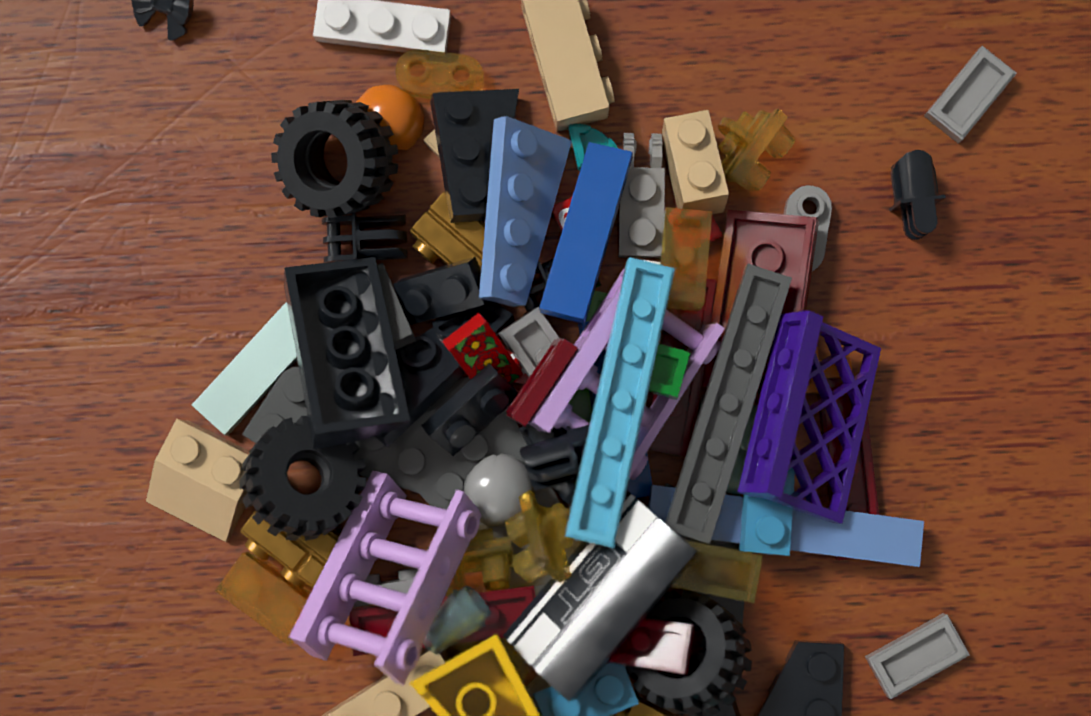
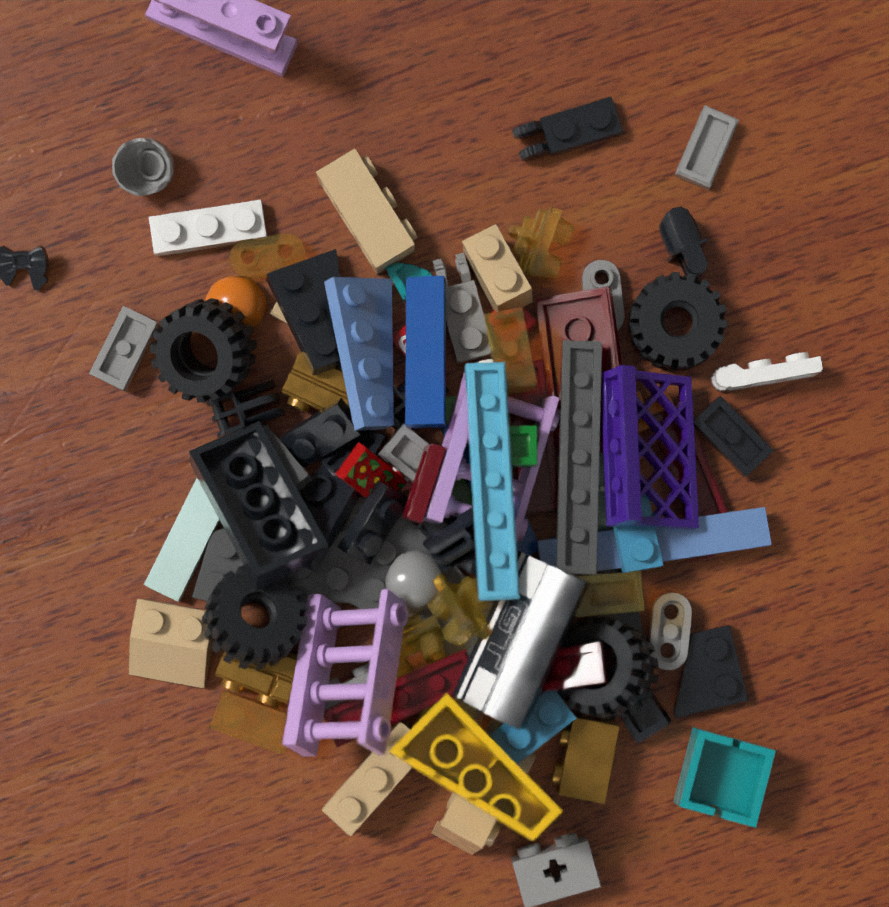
camera: 15 degrees left, 0 degrees up
(247, 133) = (124, 348): none -> light grey plate
(456, 619) = (411, 692): clear light blue cone -> none
(778, 632) = (670, 631): none -> light grey plate
(822, 30) = (571, 129): none -> black hinge
(854, 300) = (671, 350): none -> black tyre
(908, 430) = (732, 437): none -> black plate
(917, 656) = (791, 617): light grey tile -> none
(965, 367) = (764, 373): none -> white hinge

